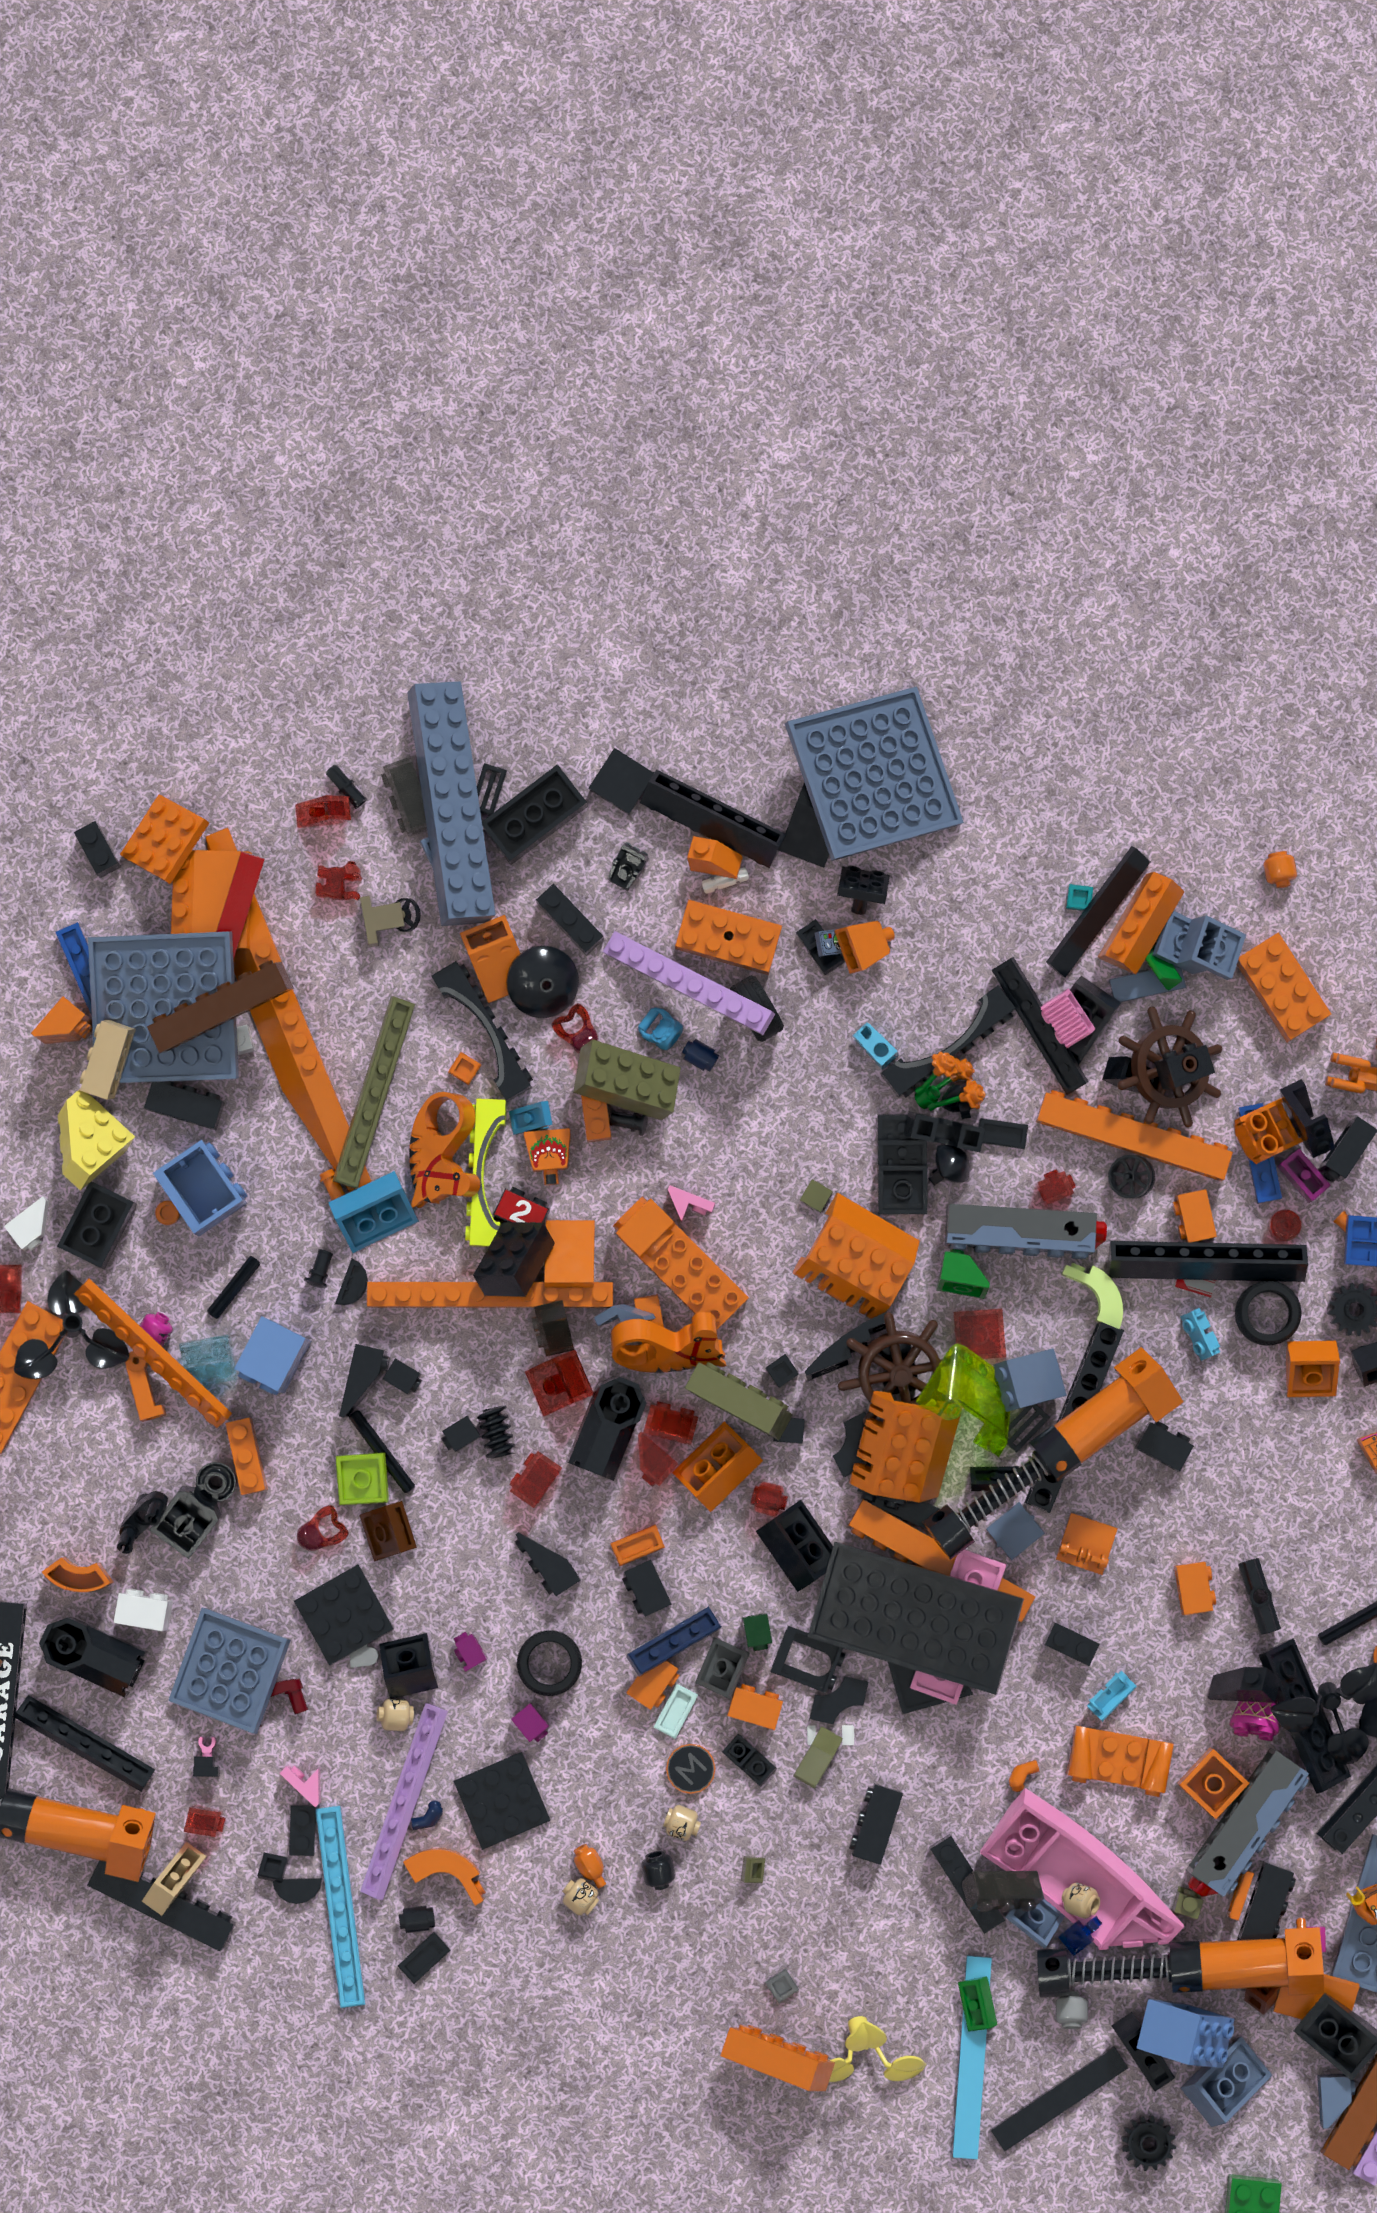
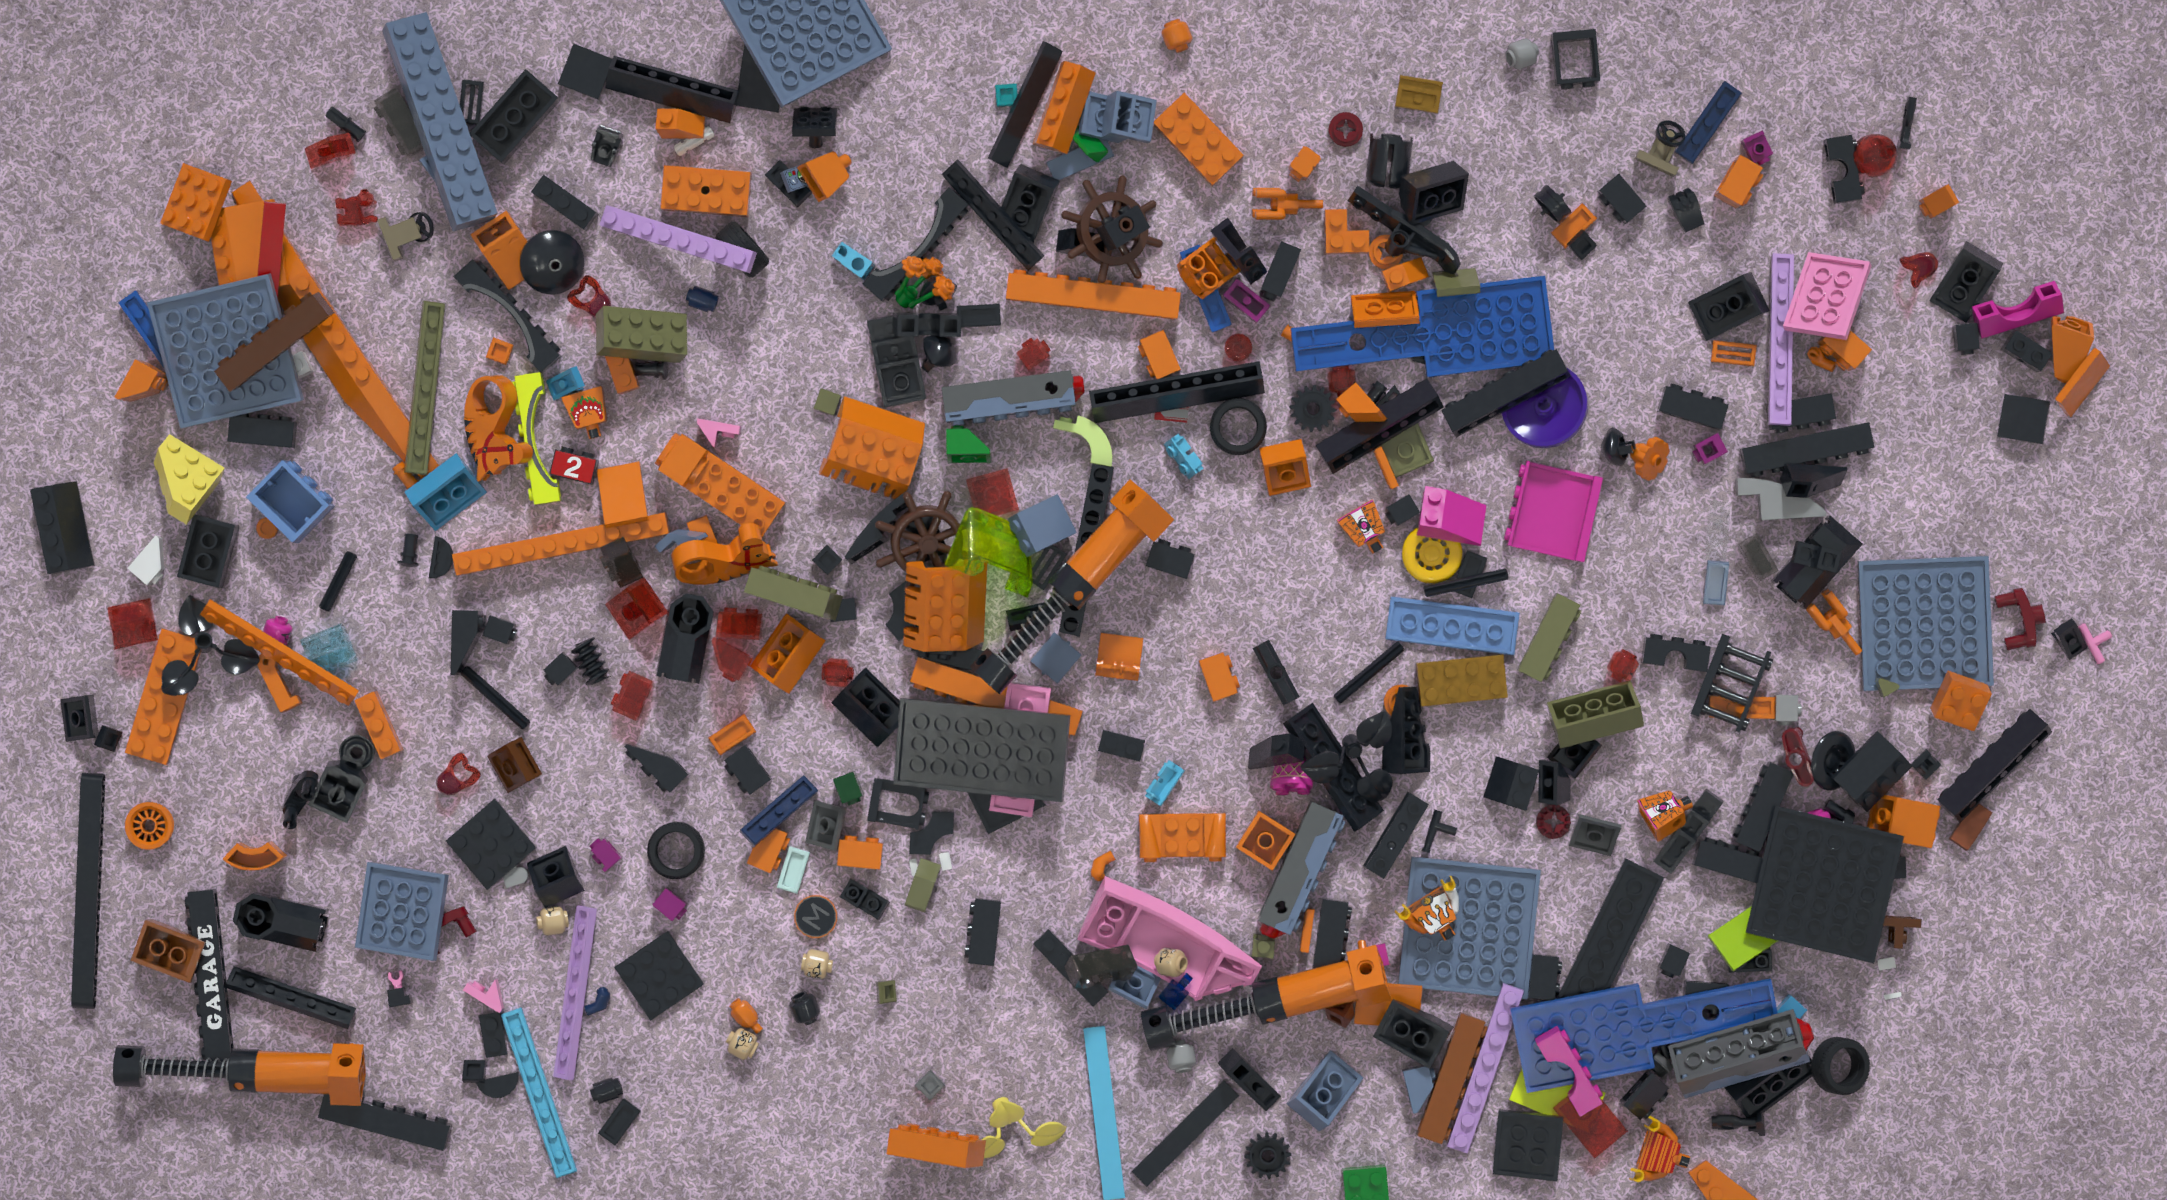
camera: 10 degrees left, 5 degrees up
(97, 849) = (139, 222): black brick -> none
(107, 1059) = (186, 405): tan brick -> none
(143, 1611) = (317, 875): white brick -> none
(174, 1878) = (390, 1097): tan brick -> none
(204, 1821) = (407, 1043): clear red slope -> none
(272, 1356) = (382, 635): medium blue container -> none
(362, 1478) = (482, 724): lime tile -> none
(448, 1861) = (623, 1036): orange arch -> none
(514, 1259) = (574, 509): black brick -> none
(665, 1033) = (668, 285): dark azure piece -> none
(977, 2004) = (1099, 1067): green slope -> none
(1067, 1018) = (1014, 204): bright pink brick -> none
(1131, 1176) = (1097, 331): black wheel -> none
(1185, 2033) = (1279, 1057): medium blue container -> none

